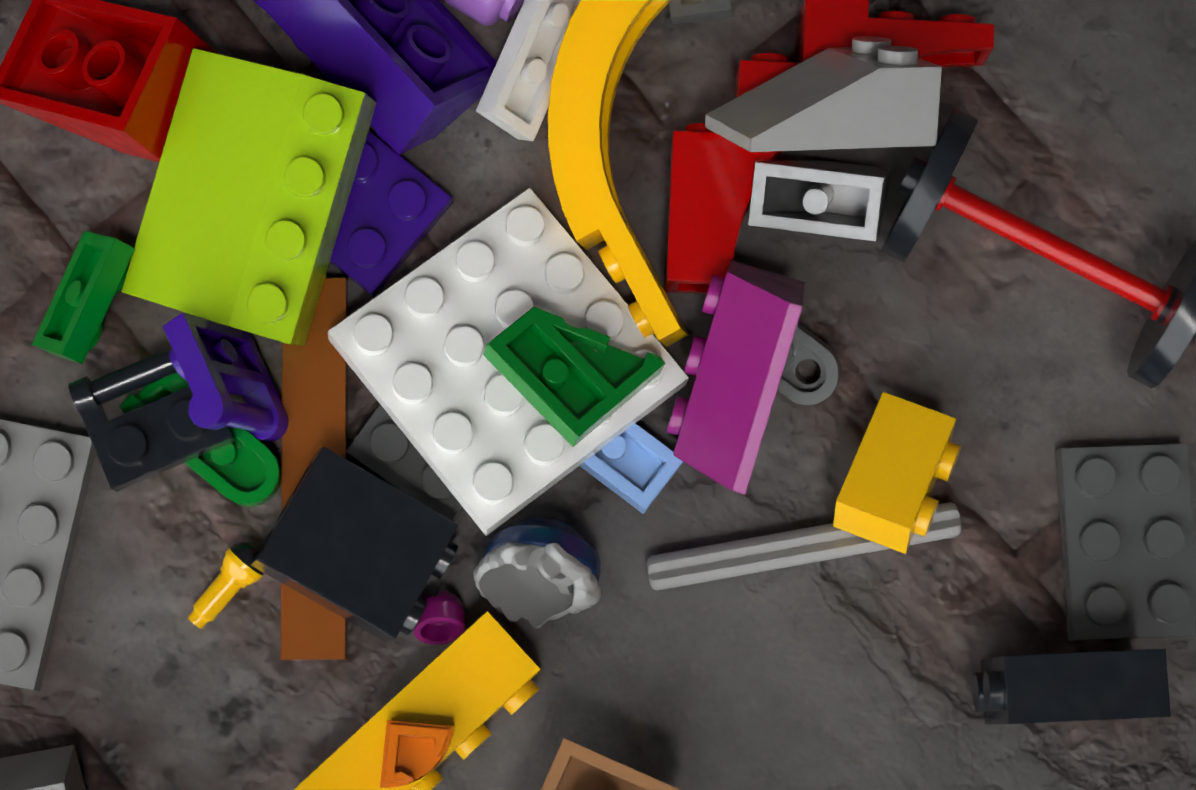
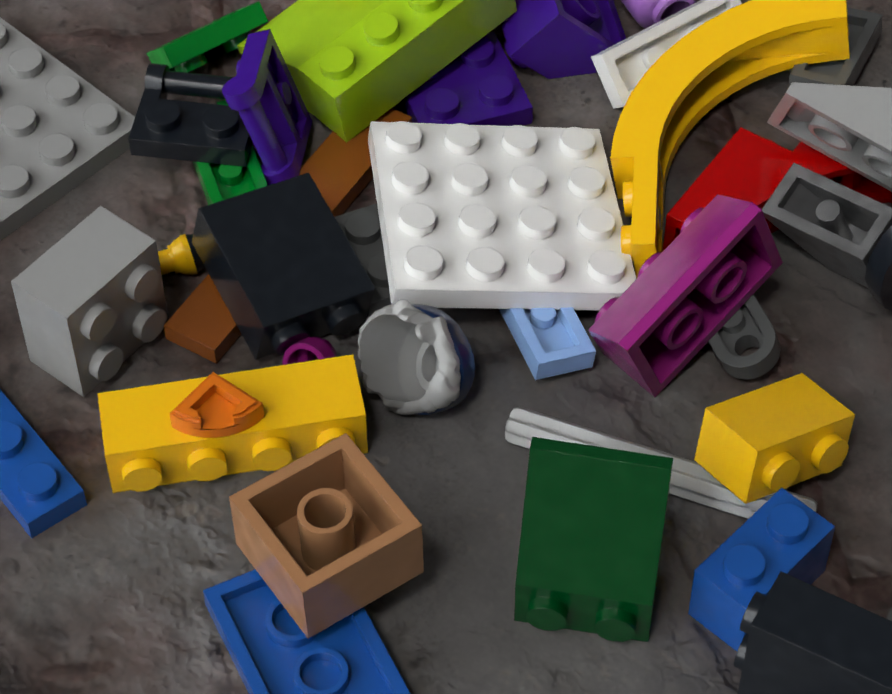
camera: 35 degrees right, 30 degrees down
(215, 697) = (91, 301): none -> light grey brick
(569, 371) = (542, 221): green wing -> none
(821, 702) = (591, 539): none -> dark green slope
(952, 609) = (776, 538): none -> blue brick

